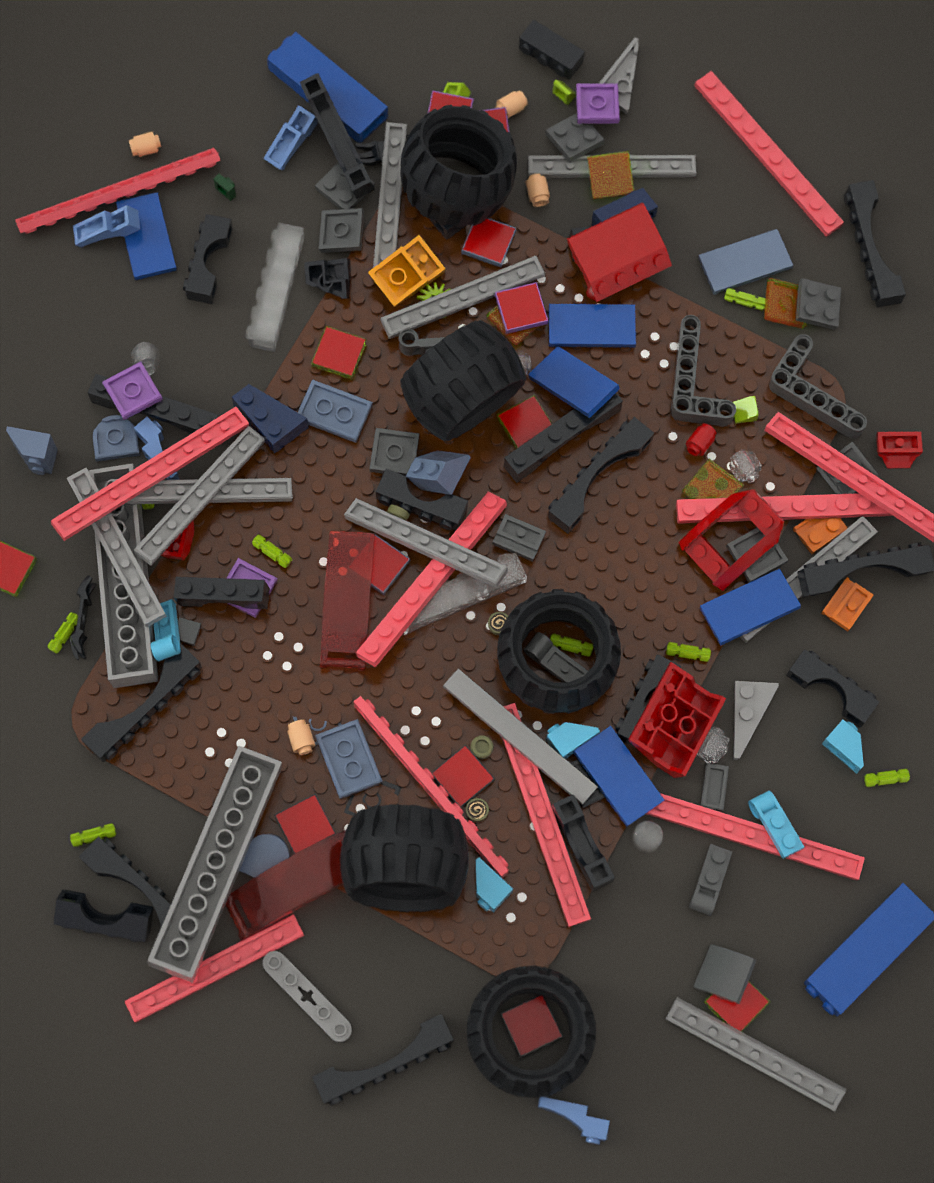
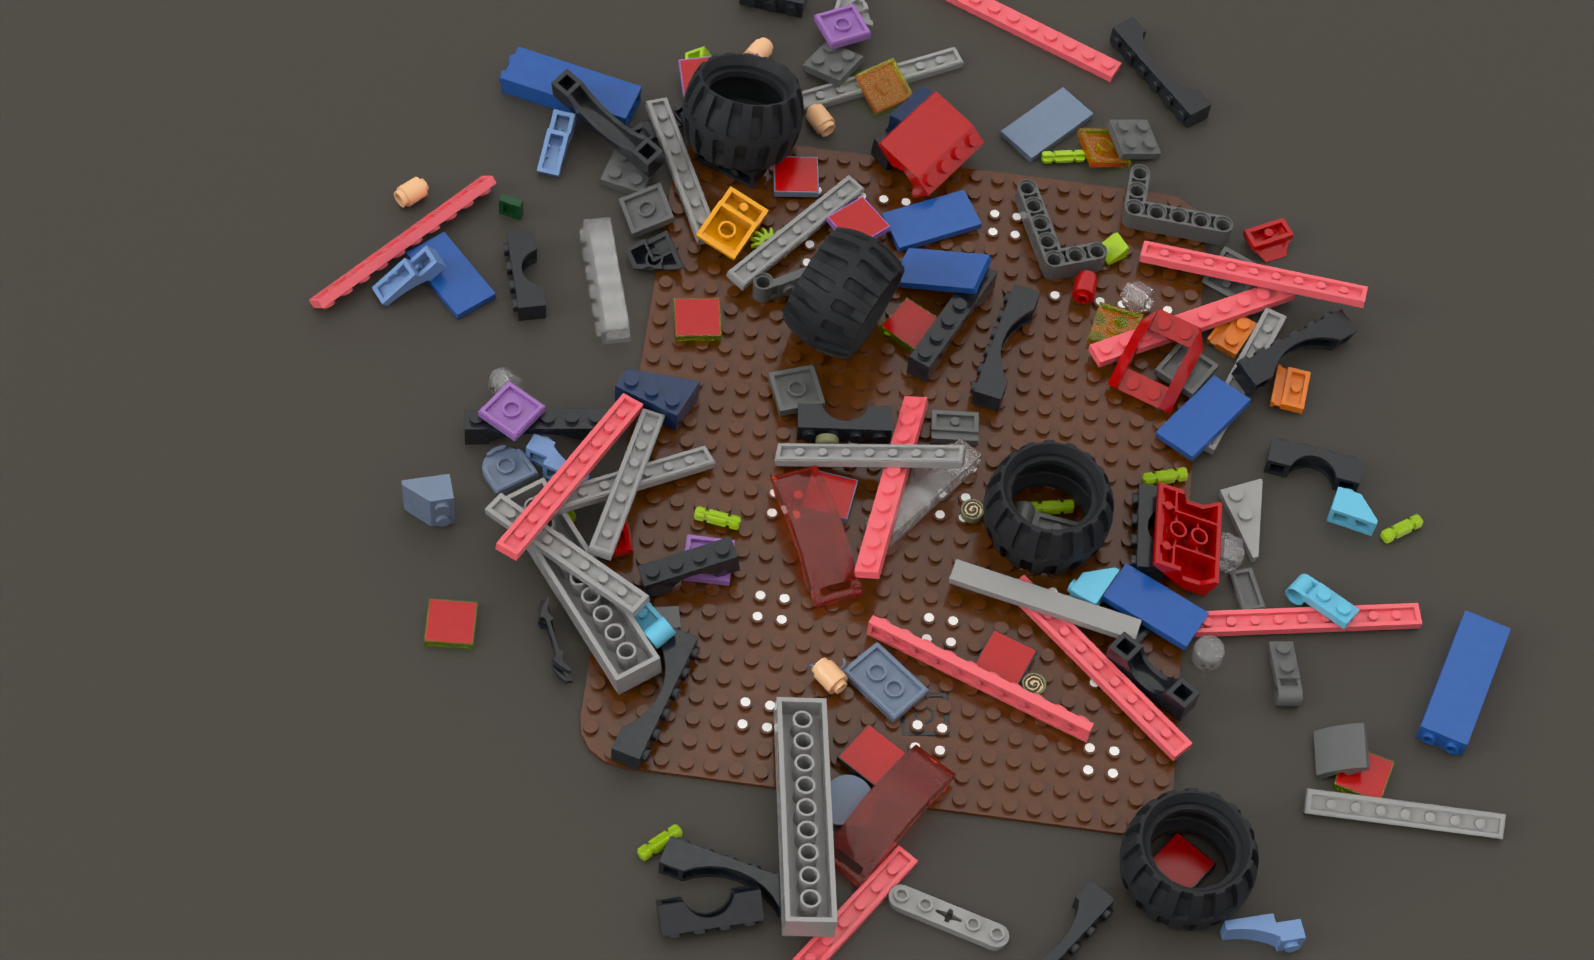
camera: 25 degrees left, 15 degrees down
(63, 633) = (539, 664): lime axle -> none
(335, 410) = (720, 372): sand blue tile -> none
(404, 858) = (996, 735): black tyre -> none
(438, 471) = (850, 391): sand blue slope -> none
(482, 747) = (1010, 626): olive tile -> none
(490, 887) = (1080, 747): medium azure slope -> none
(563, 92) = (802, 28): lime slope -> none

